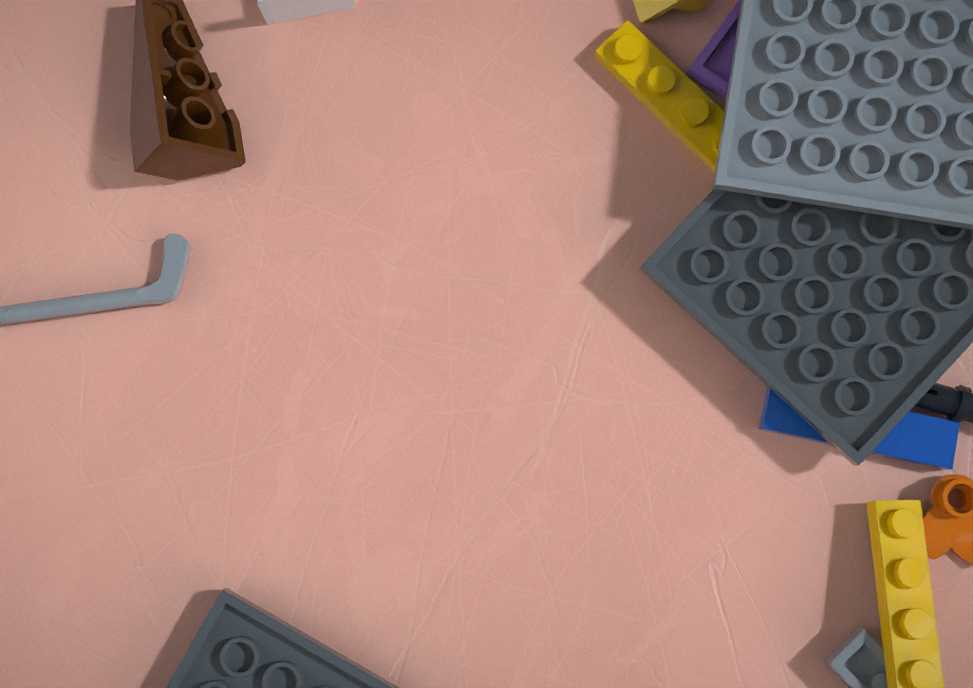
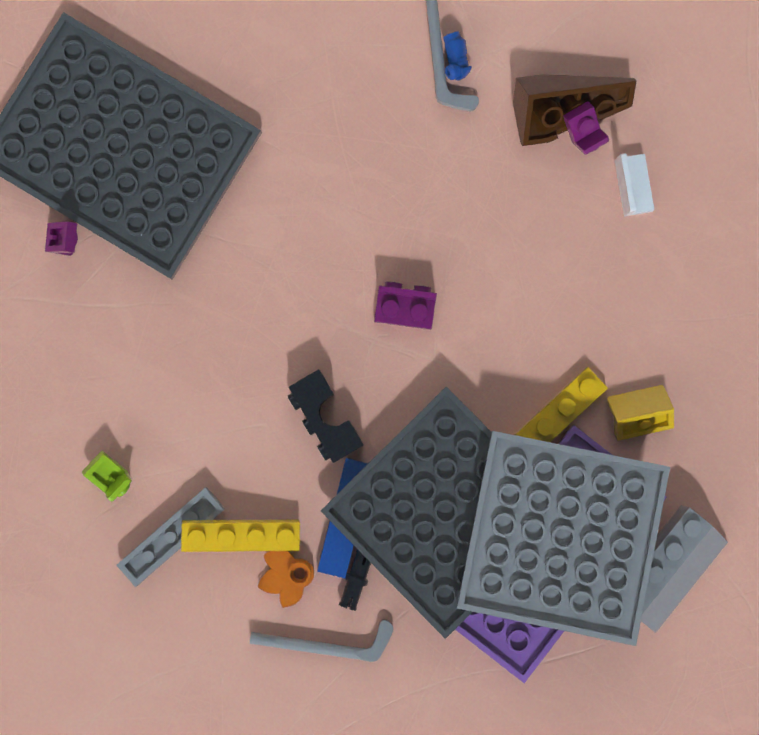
camera: 85 degrees right, 5 degrees up
(97, 271) = (456, 54): none -> blue arm
(217, 65) = (585, 128): none -> magenta bracket
(510, 340) = (405, 306): none -> magenta bracket
(735, 444) = (309, 396): none -> black arch

